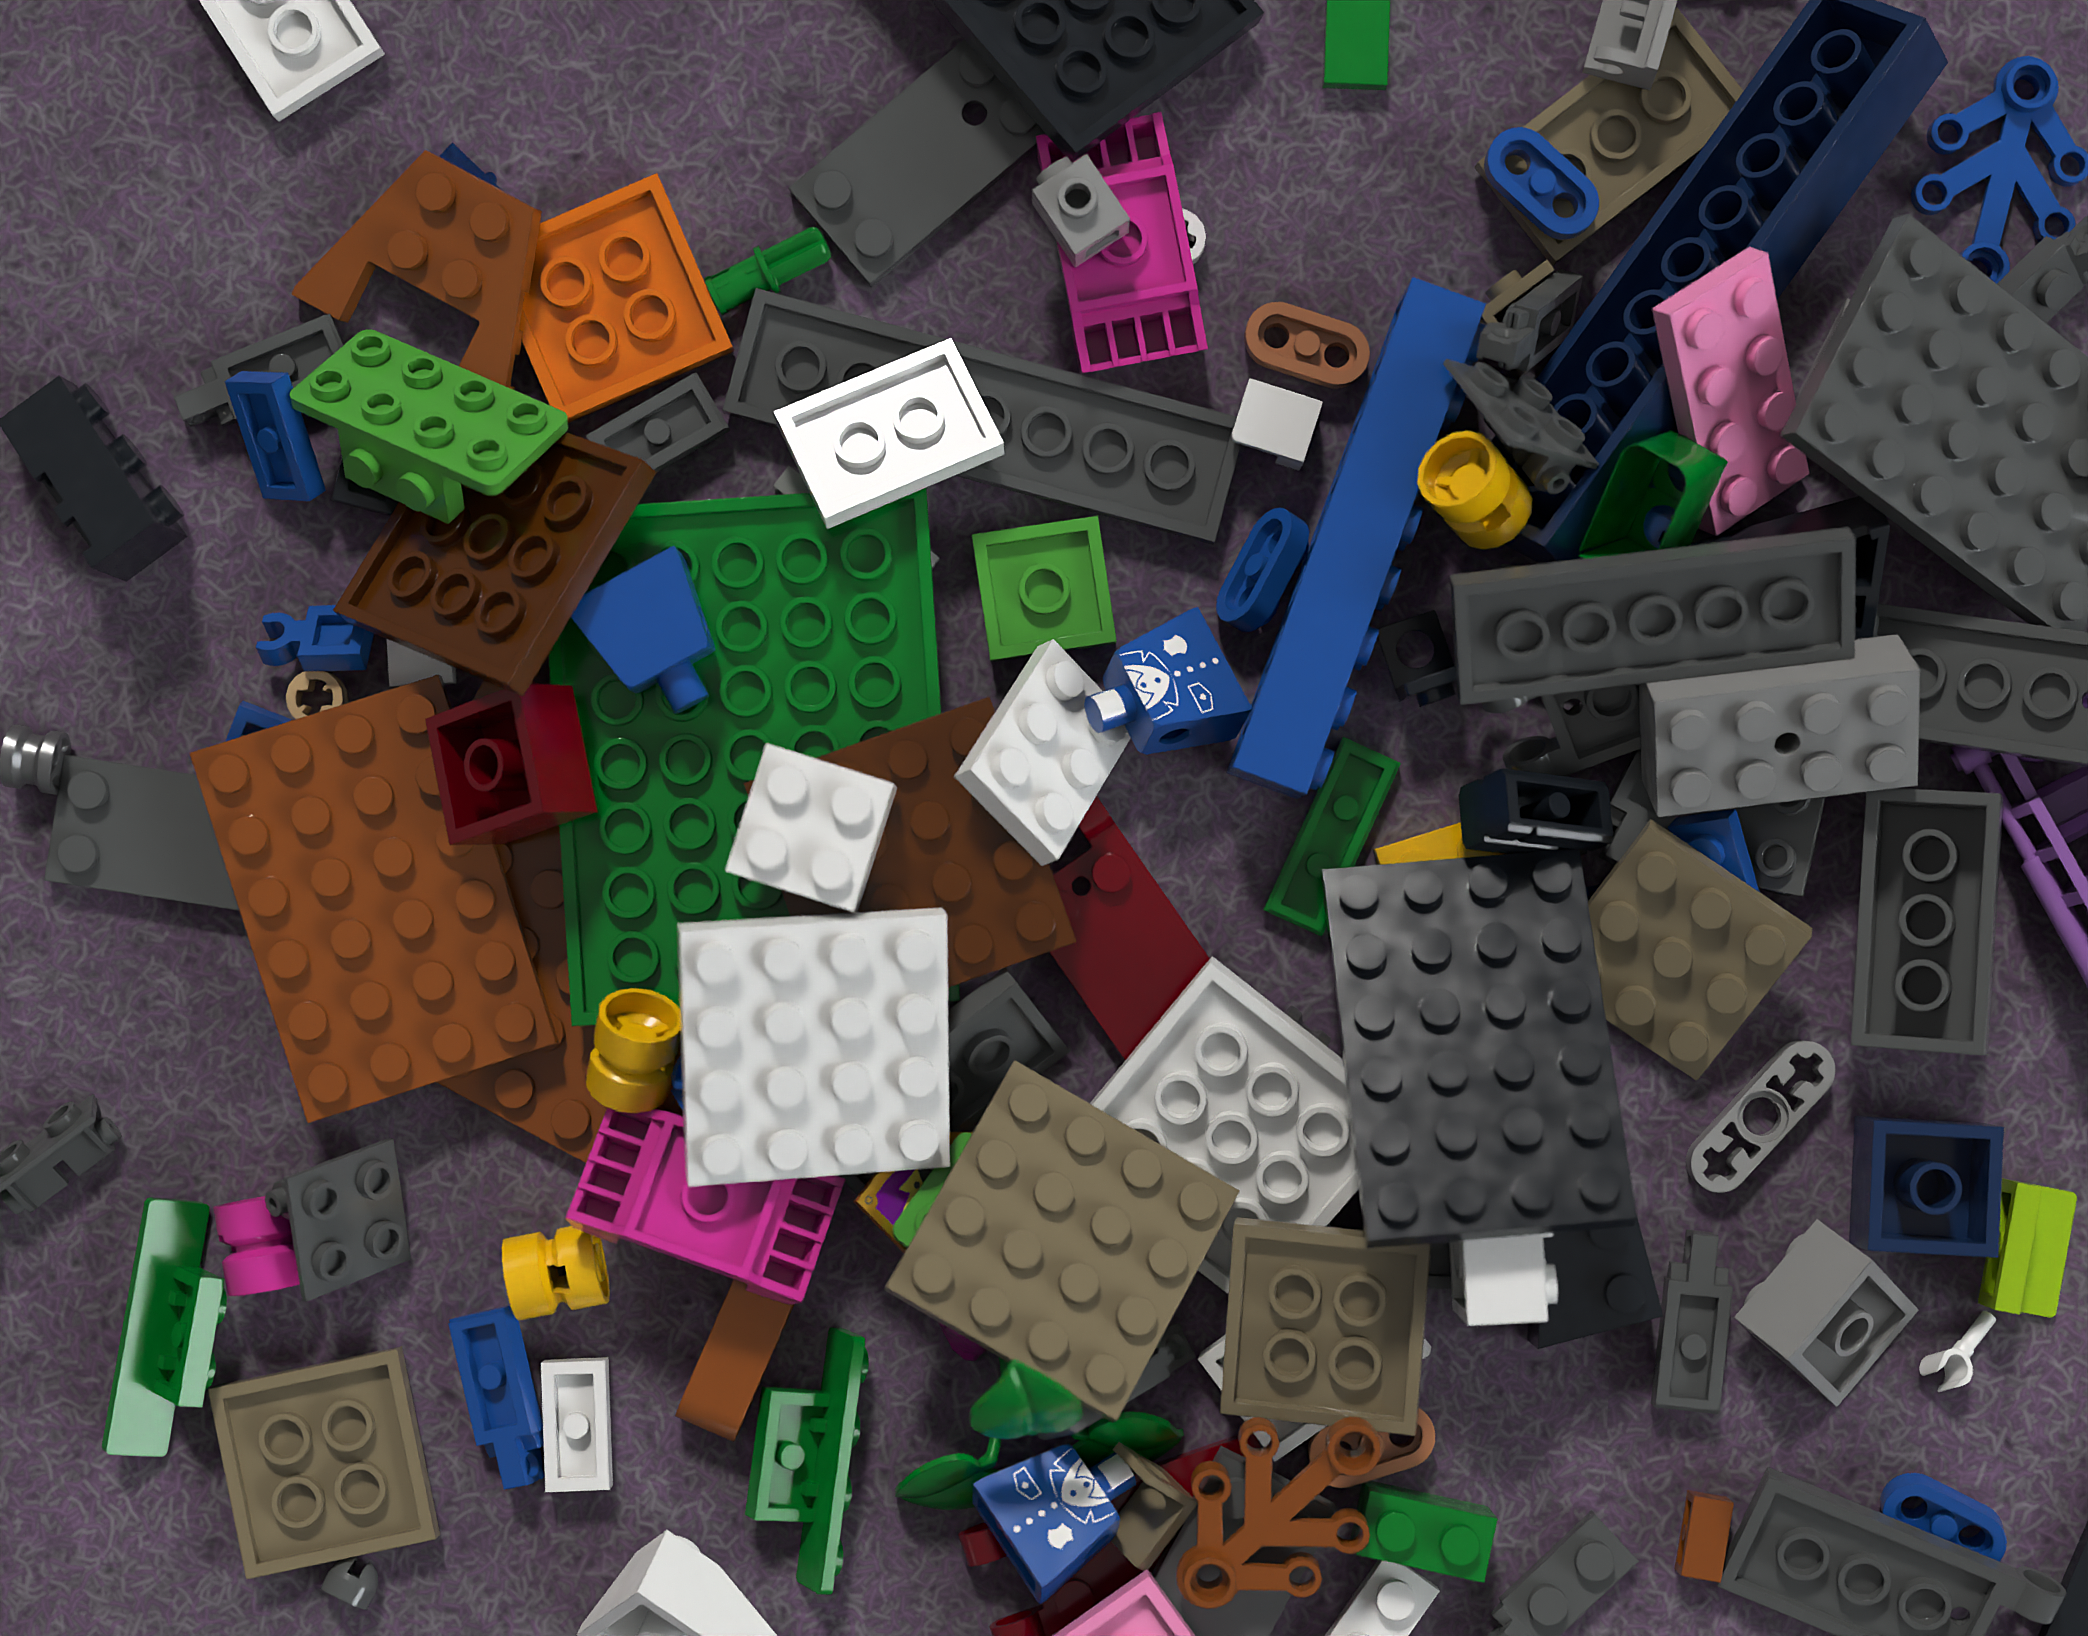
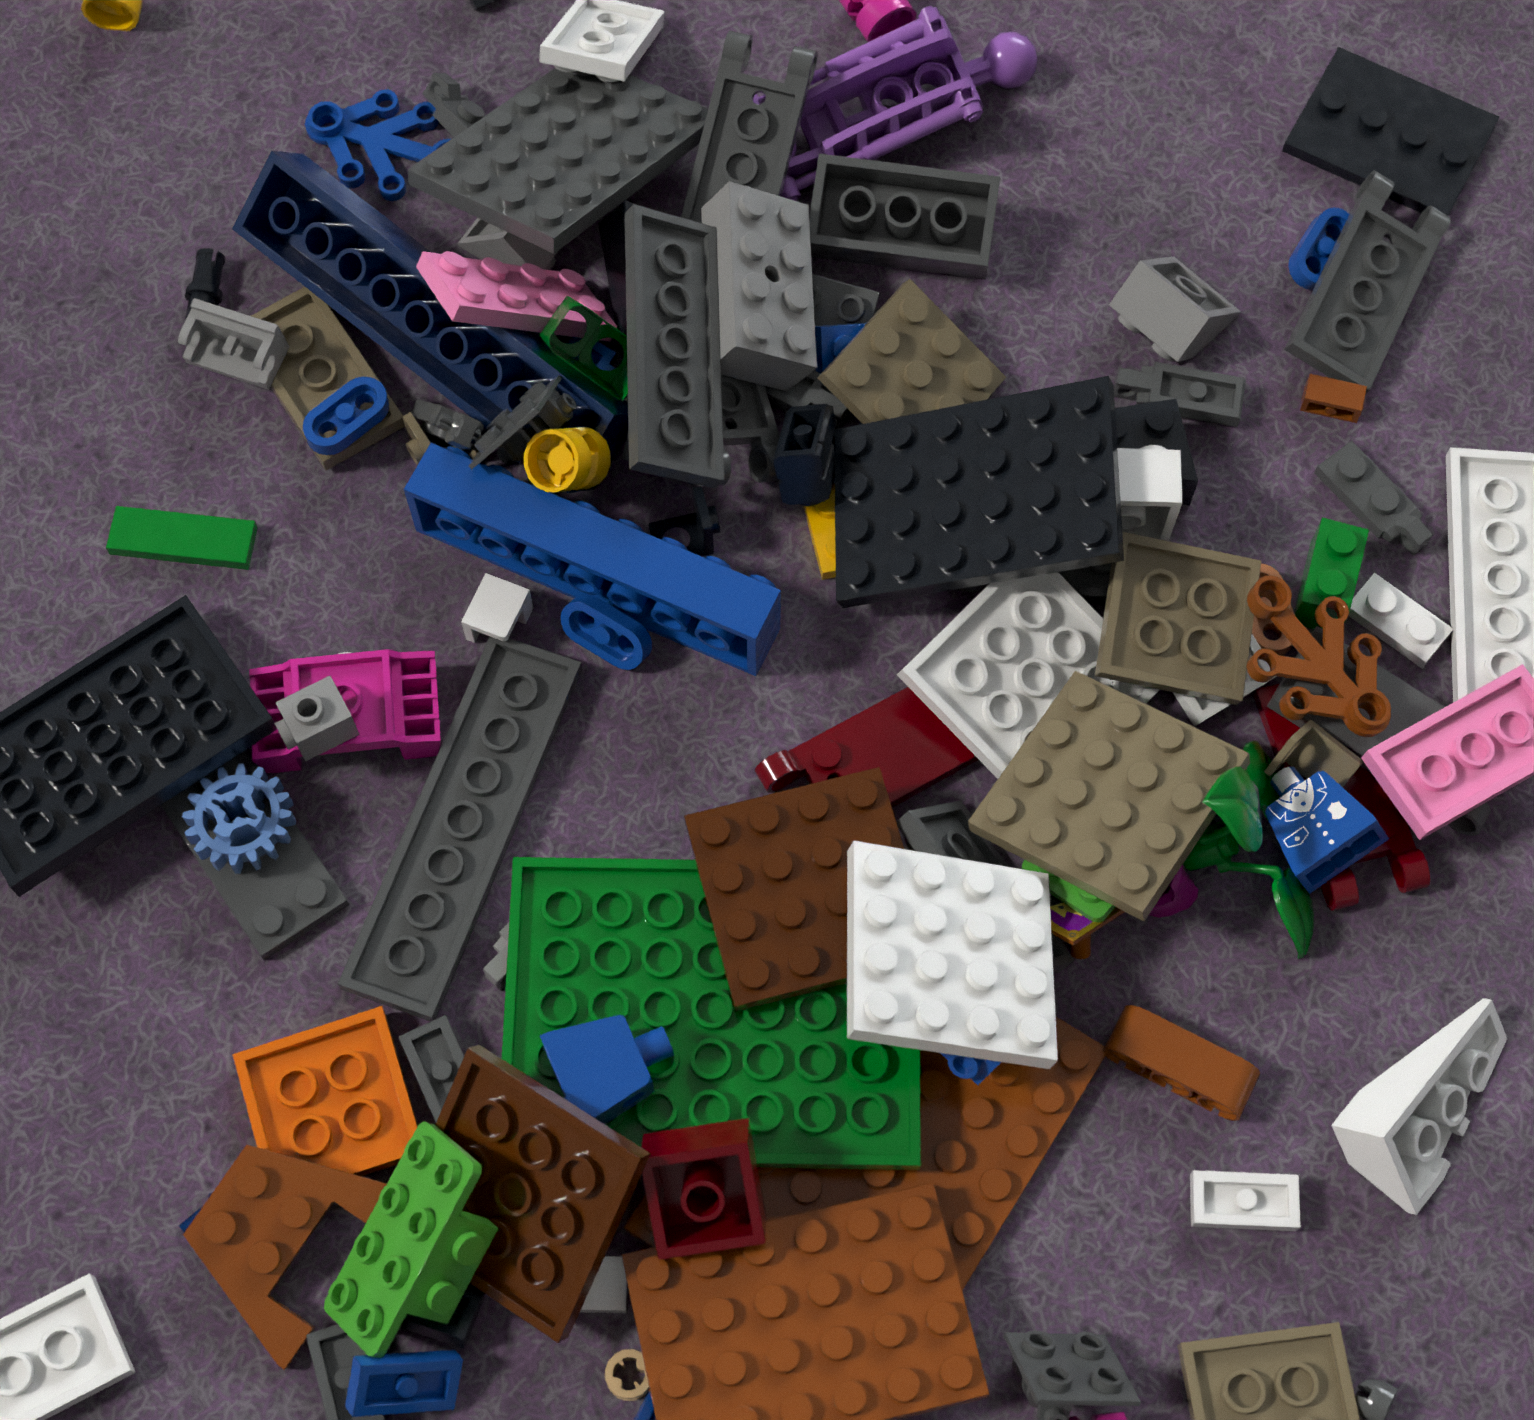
camera: 85 degrees left, 20 degrees down
(320, 641) = (579, 1362): blue plate -> none
(500, 1392) = (1215, 1261): blue hinge -> none
(533, 1275) = (1121, 1222): yellow wheel -> none
(634, 1050) = (944, 1107): yellow wheel -> none
(742, 1230) = (1058, 1108): dark pink plate -> none
(768, 269) = (322, 975): green axle -> none
(805, 1458) = (1274, 1015): green bracket -> none
(811, 828) = (777, 941): white brick -> none
(889, 433) = (469, 879): white plate -> none
(931, 121) = (244, 838): none -> medium blue gear
(1040, 755) = (731, 781): white plate -> none
(1044, 587) = (602, 789): bright green plate -> none
(1171, 689) = (691, 693): blue torso -> none
(1308, 339) = (438, 592): nougat plate -> none
(1331, 832) = (815, 607): green tile -> none
(1787, 1117) = (1032, 322): light grey beam -> none
(1926, 1186) = (1088, 235): dark blue brick -> none
(1957, 1359) = (1212, 234): white hand -> none
(2031, 1250) = (1132, 188): lime panel -> none

